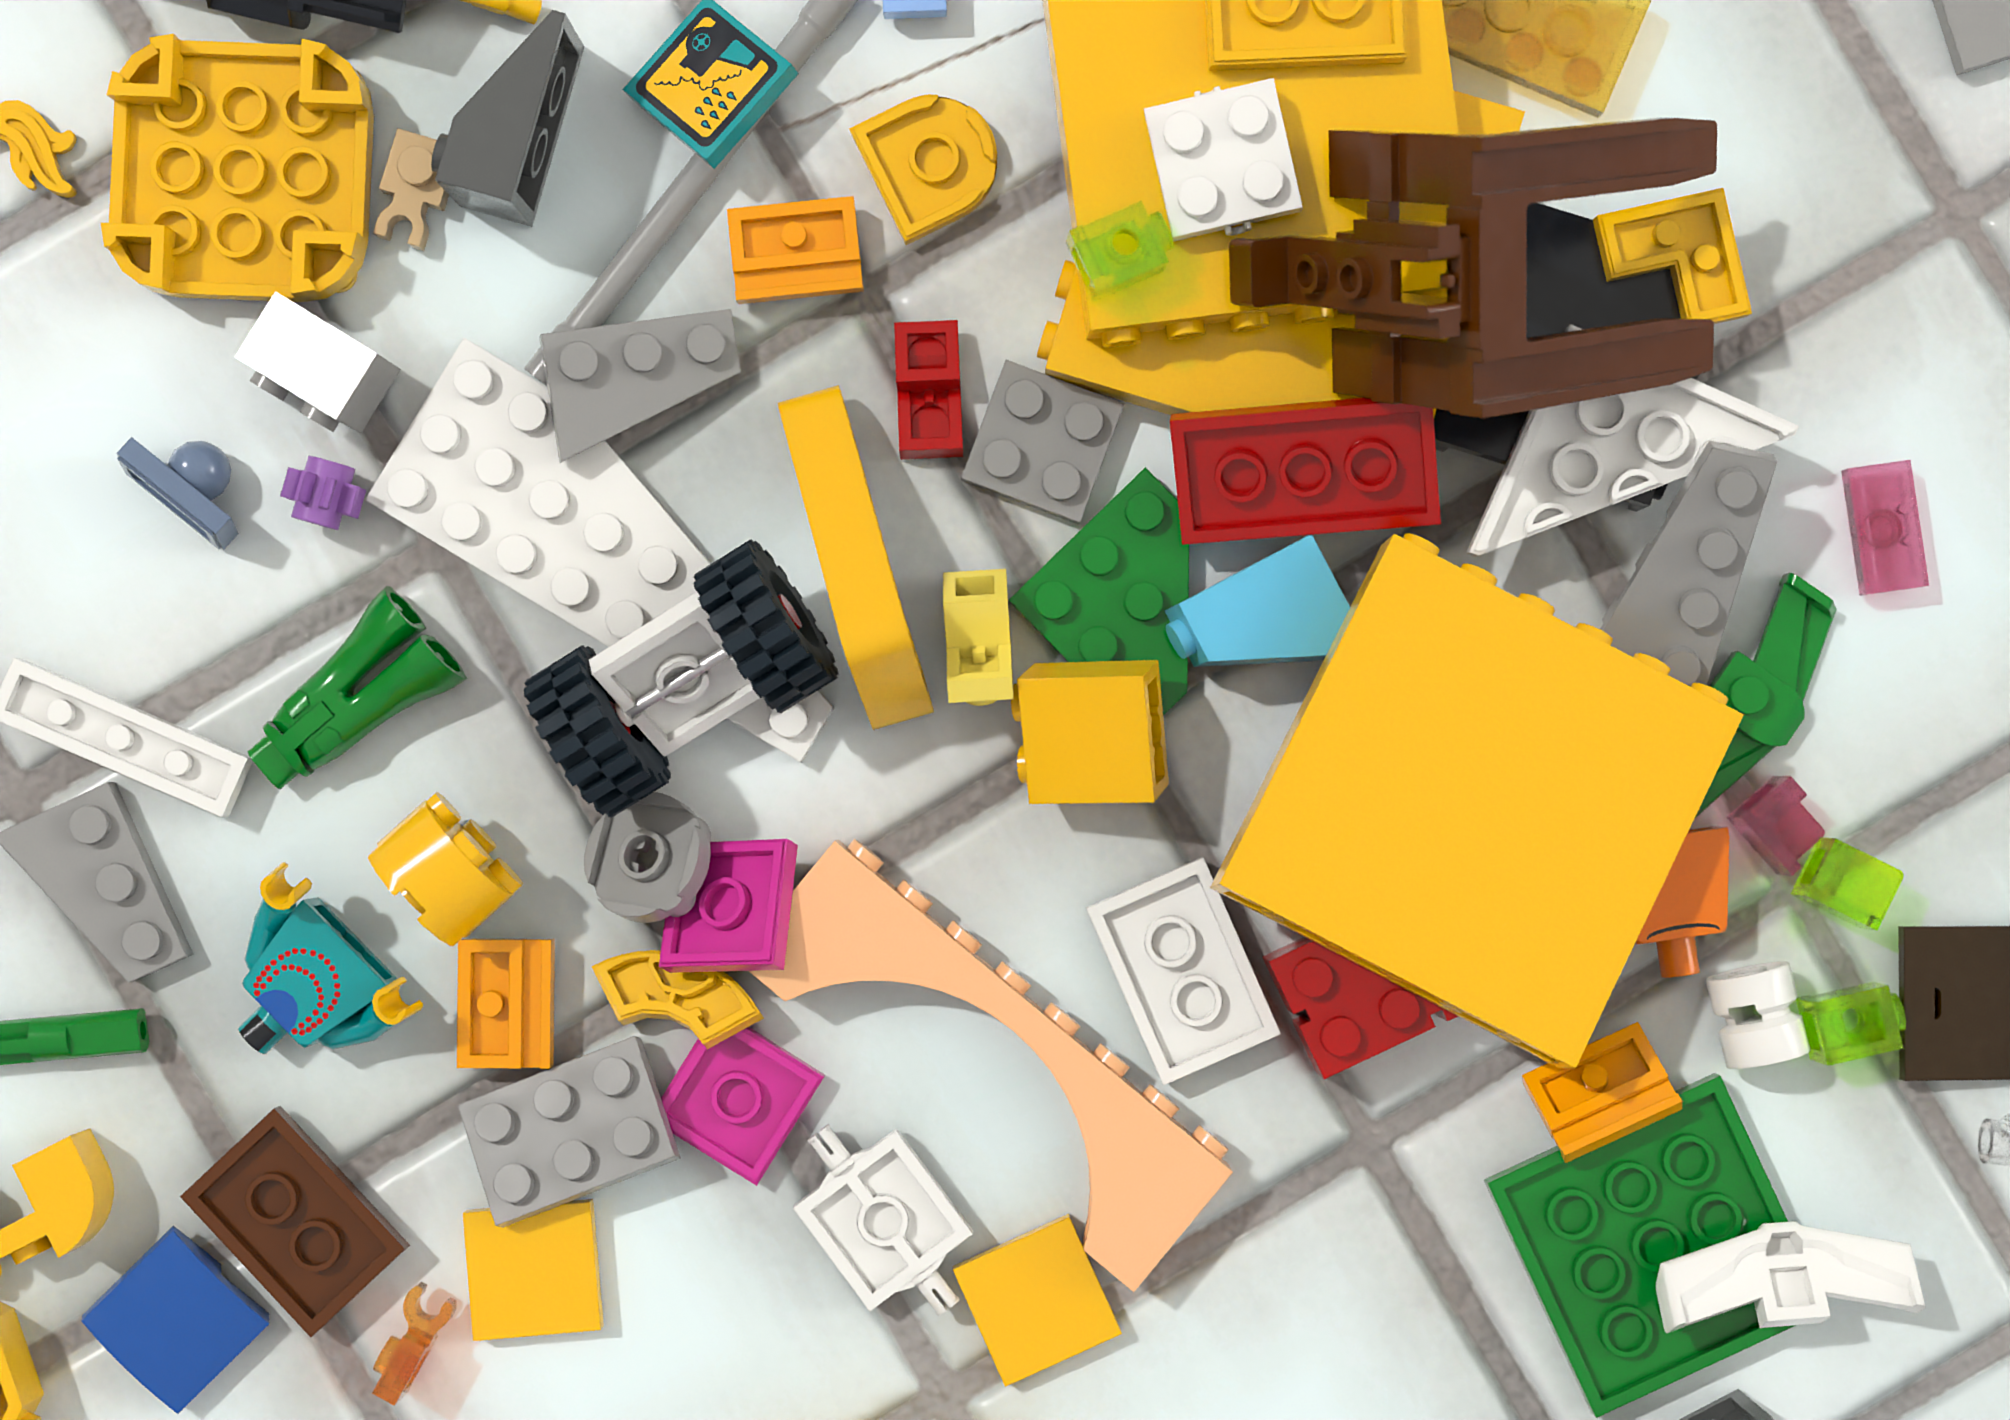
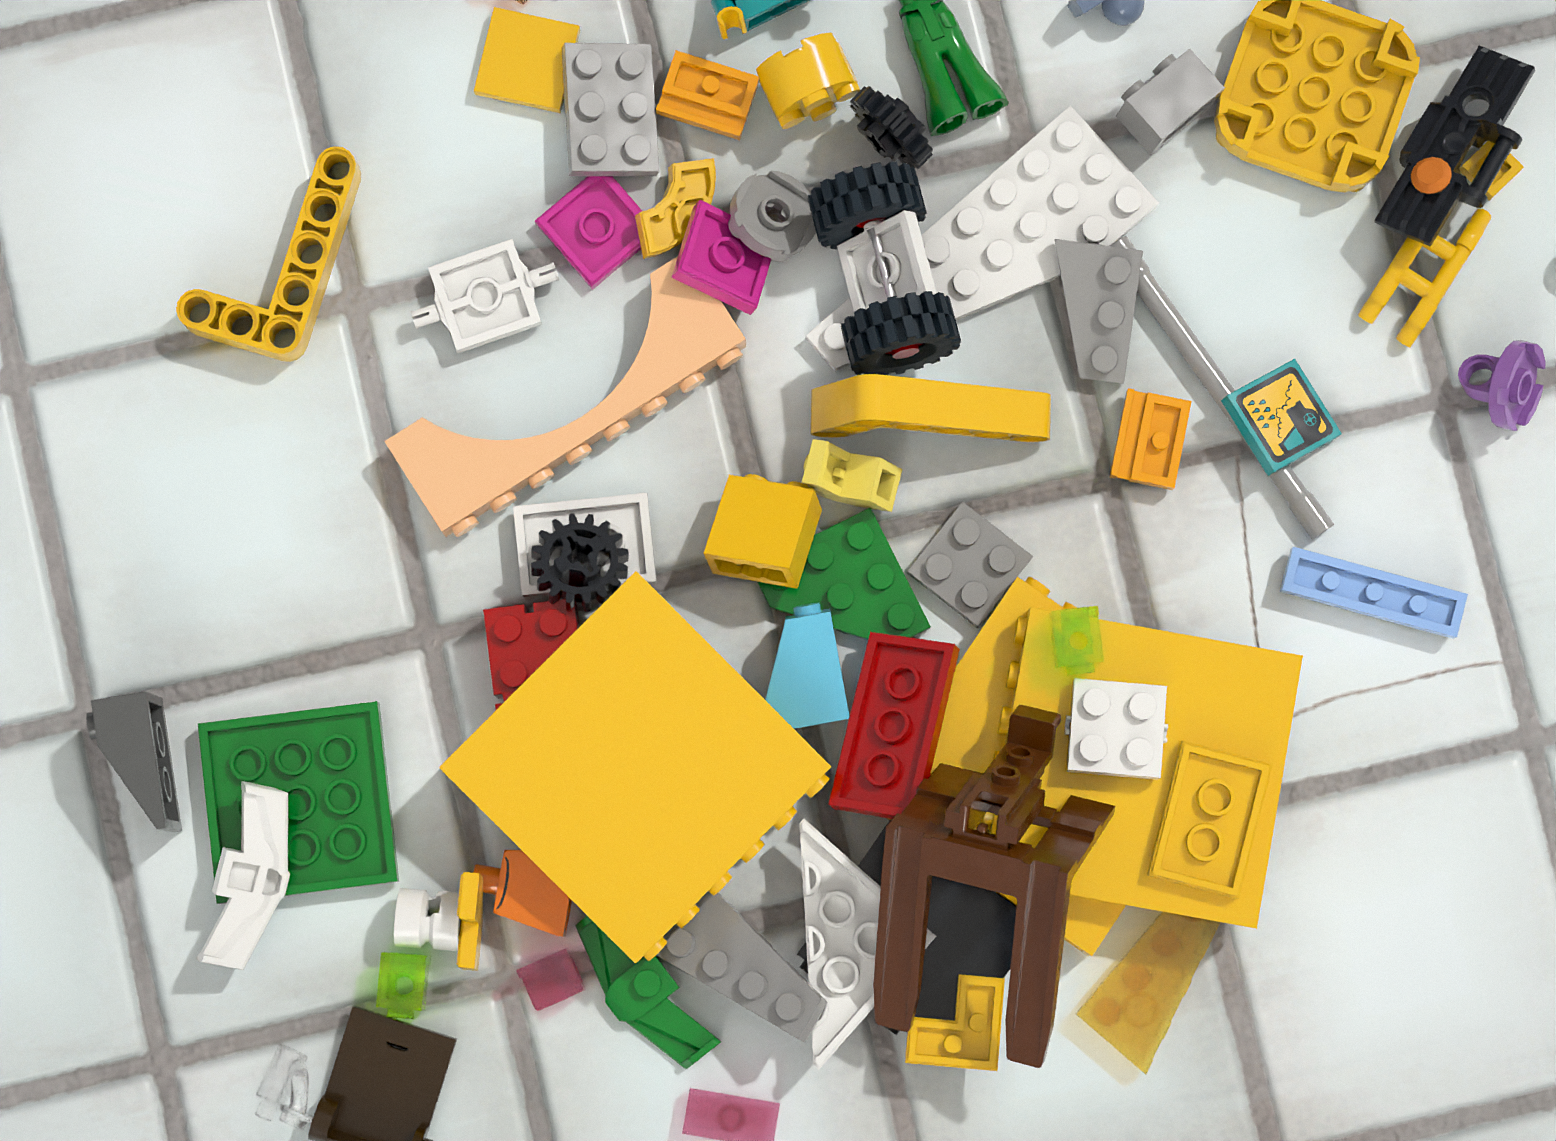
camera: 105 degrees right, 5 degrees down
(323, 492) = (1082, 79): medium lavender gear -> none
(413, 185) = (1277, 207): tan plate -> none
(475, 733) = (891, 127): none -> black gear
(510, 126) = (1285, 273): dark grey slope -> none
(928, 161) = (1183, 548): yellow tile -> none
(928, 389) = (1029, 499): red slope -> none
(1036, 1300) = (398, 380): yellow tile -> none
(1240, 985) = (585, 544): none -> black gear
(1607, 1095) = (412, 797): light orange plate -> none
(1747, 959) = (471, 916): none -> yellow tile
(1848, 883) = (497, 1010): clear neon green panel -> none

